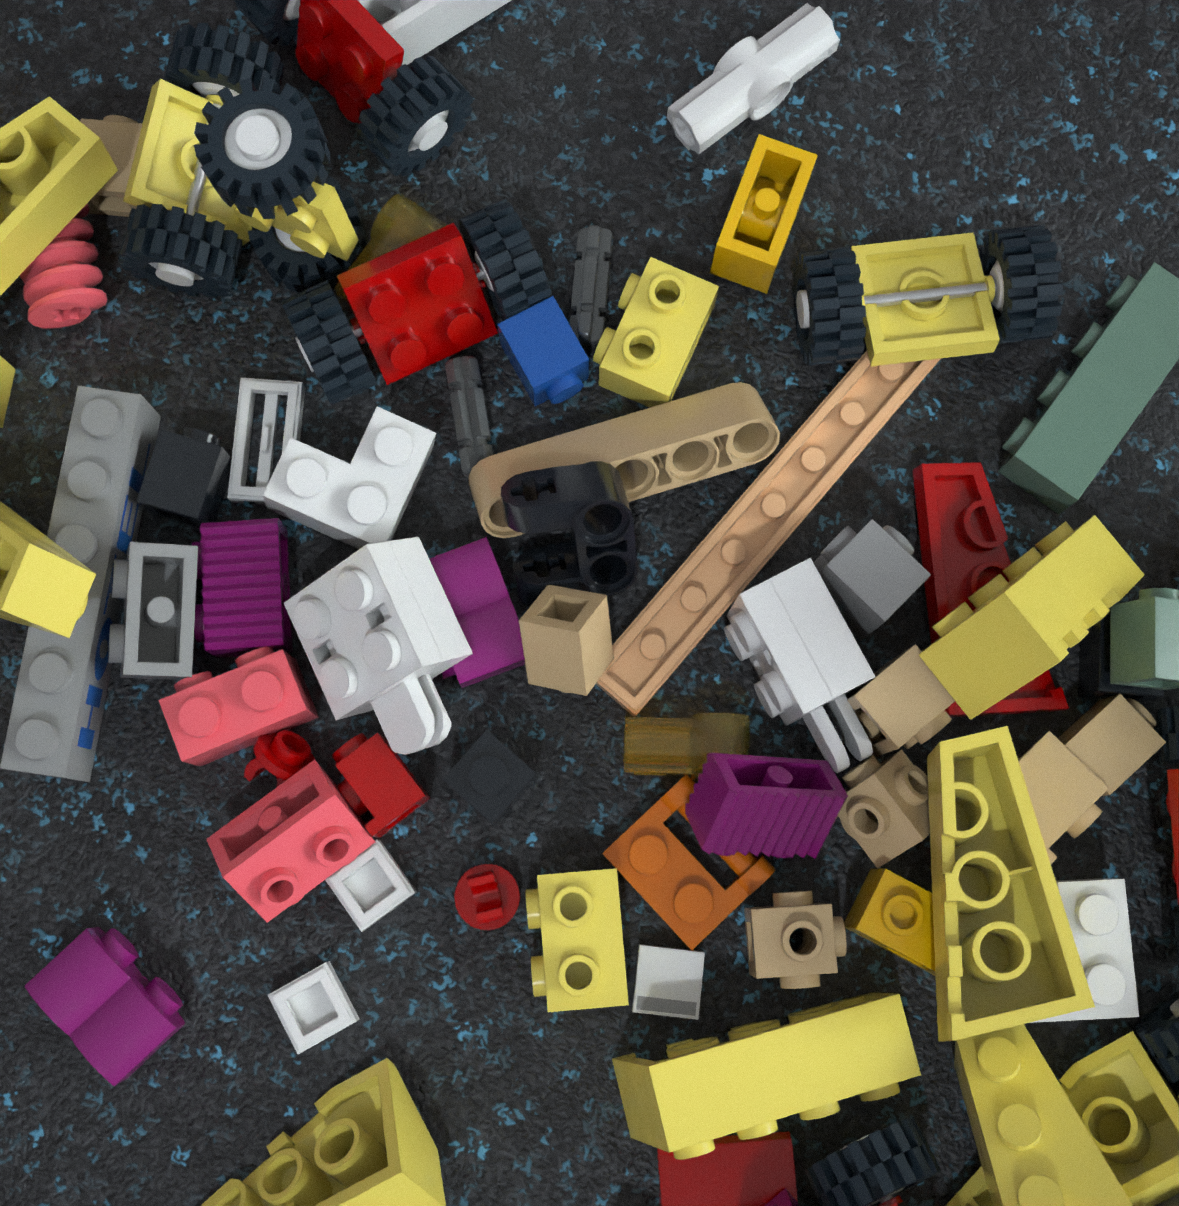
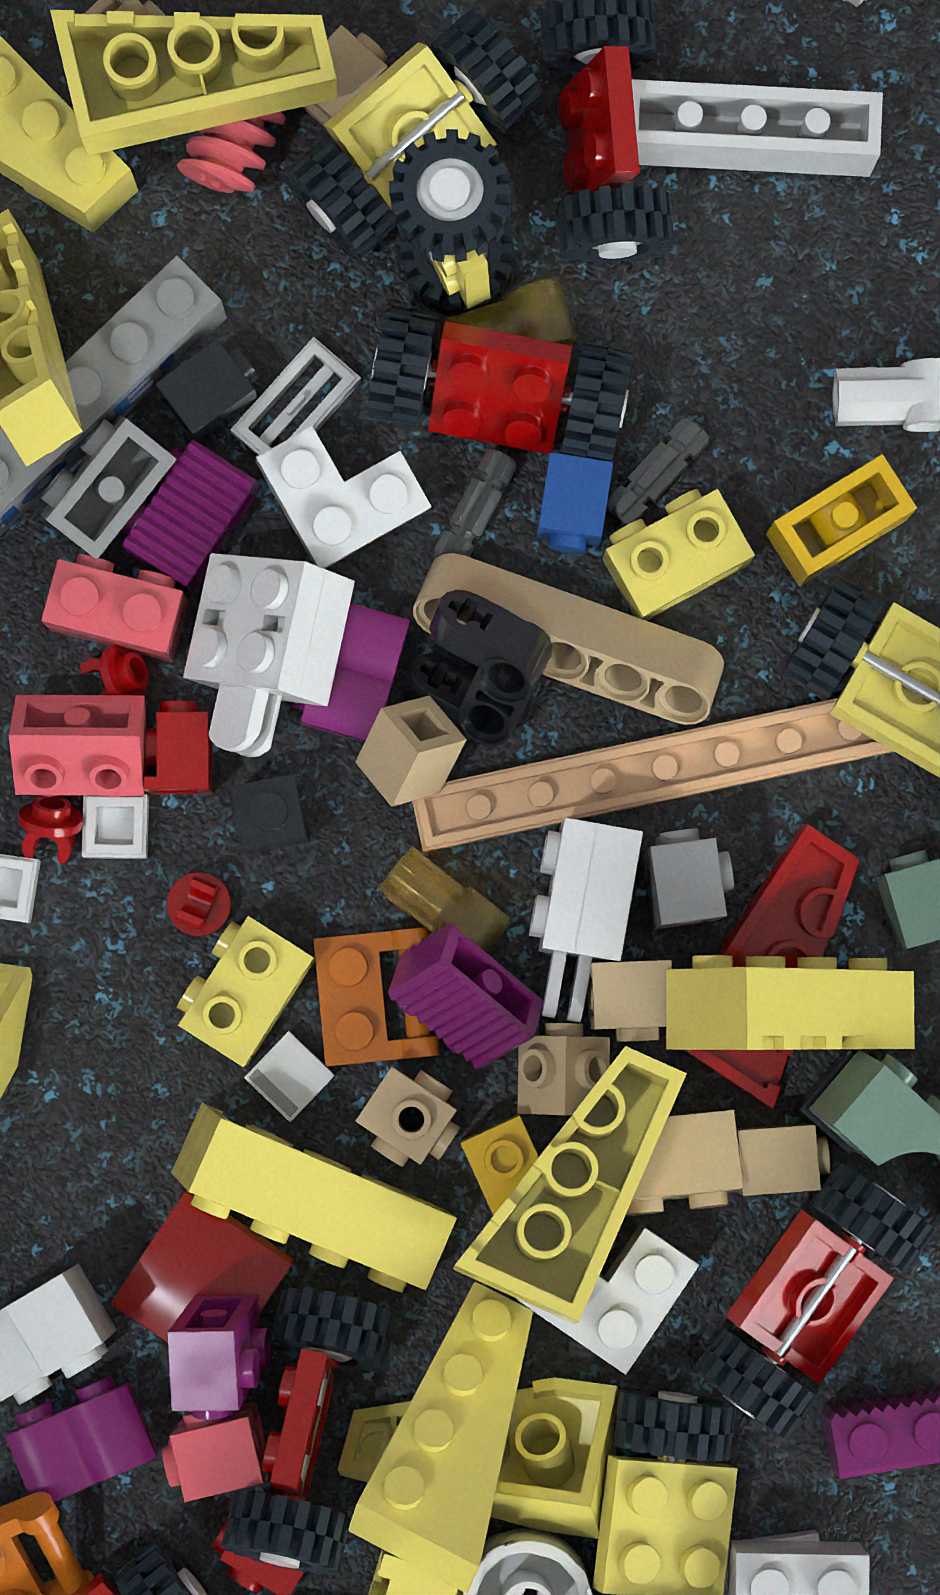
camera: 35 degrees right, 5 degrees up
(312, 919) = (52, 819): none -> red plate

